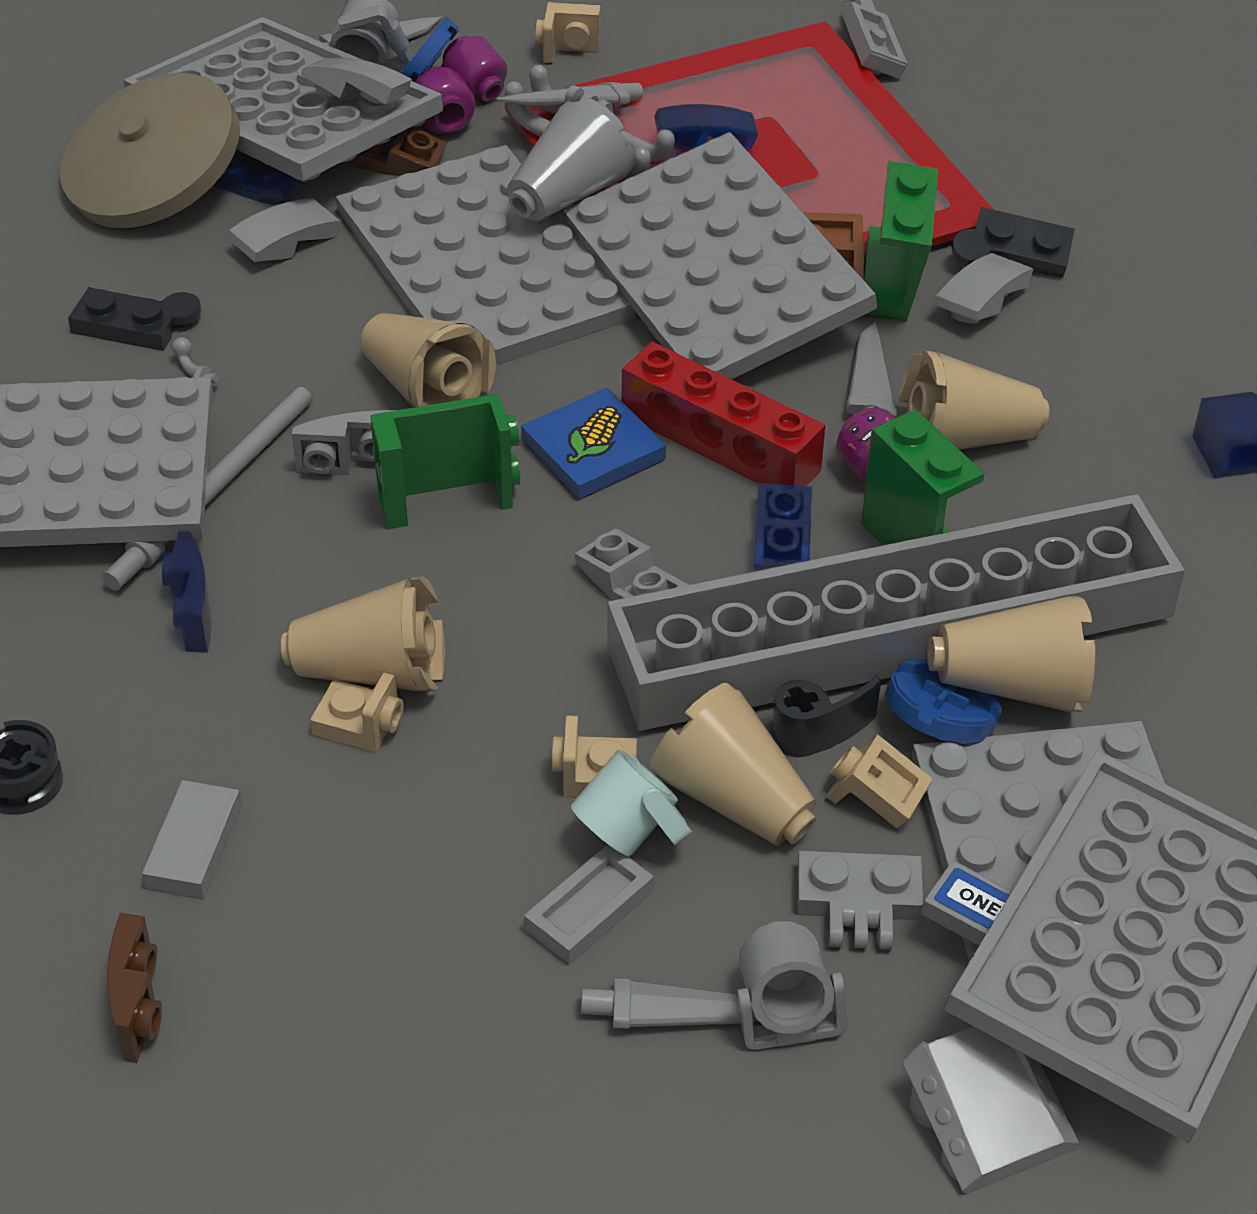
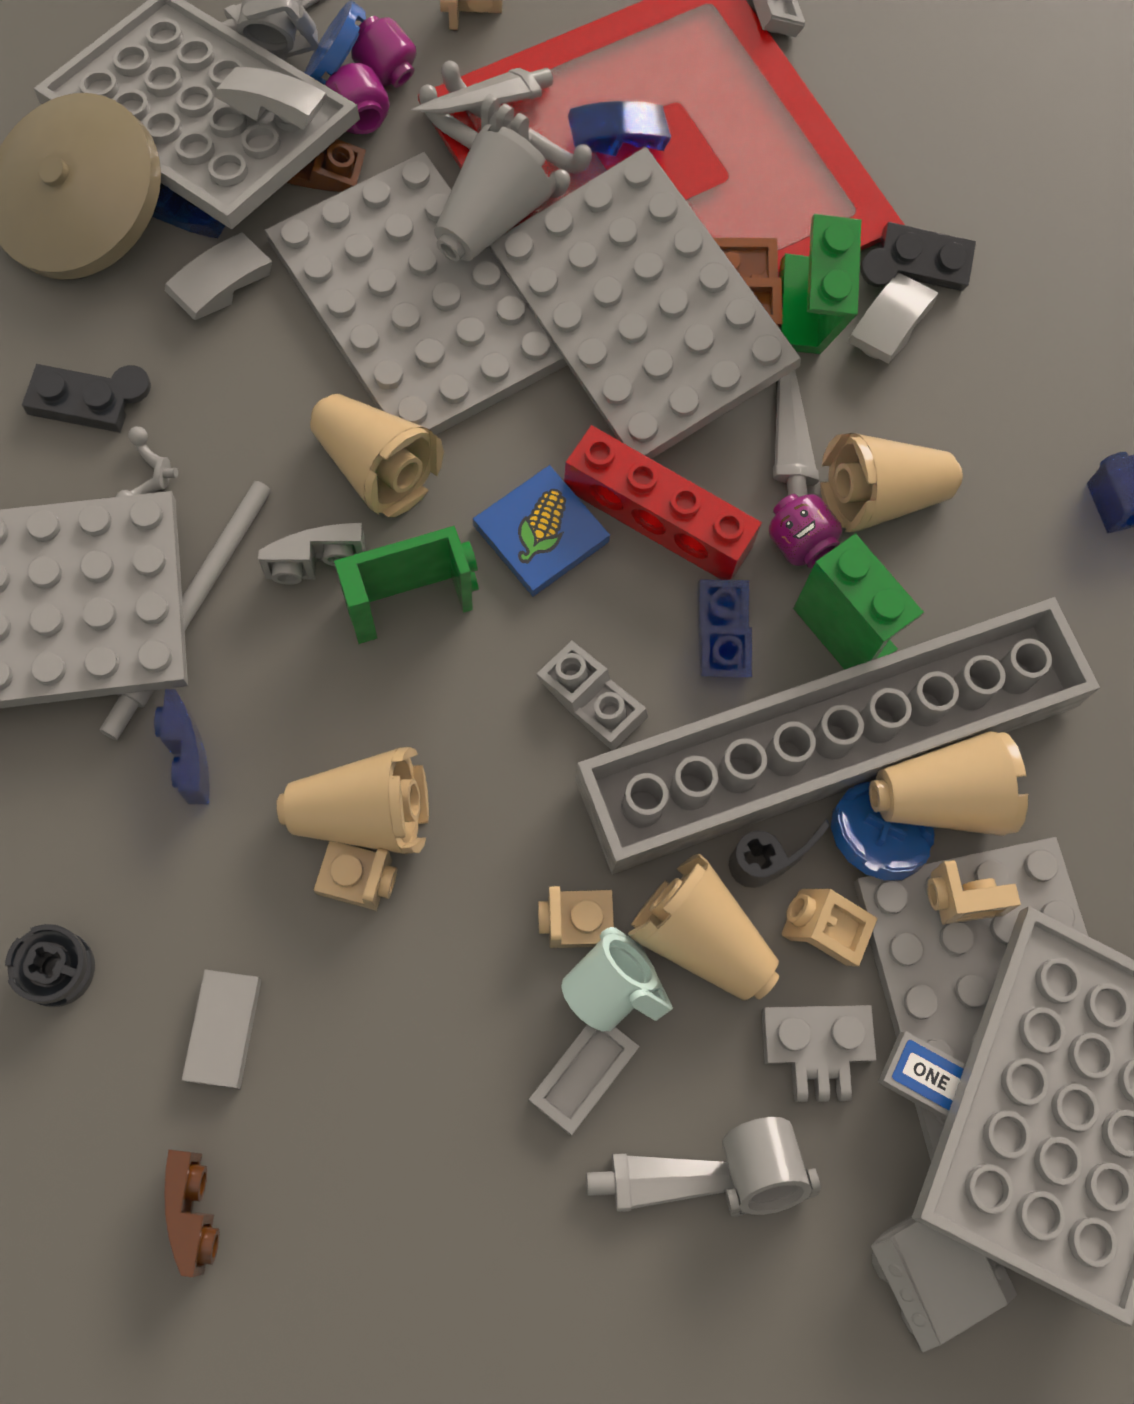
camera: 10 degrees left, 25 degrees up
(1034, 750) = (975, 901): none -> tan bracket

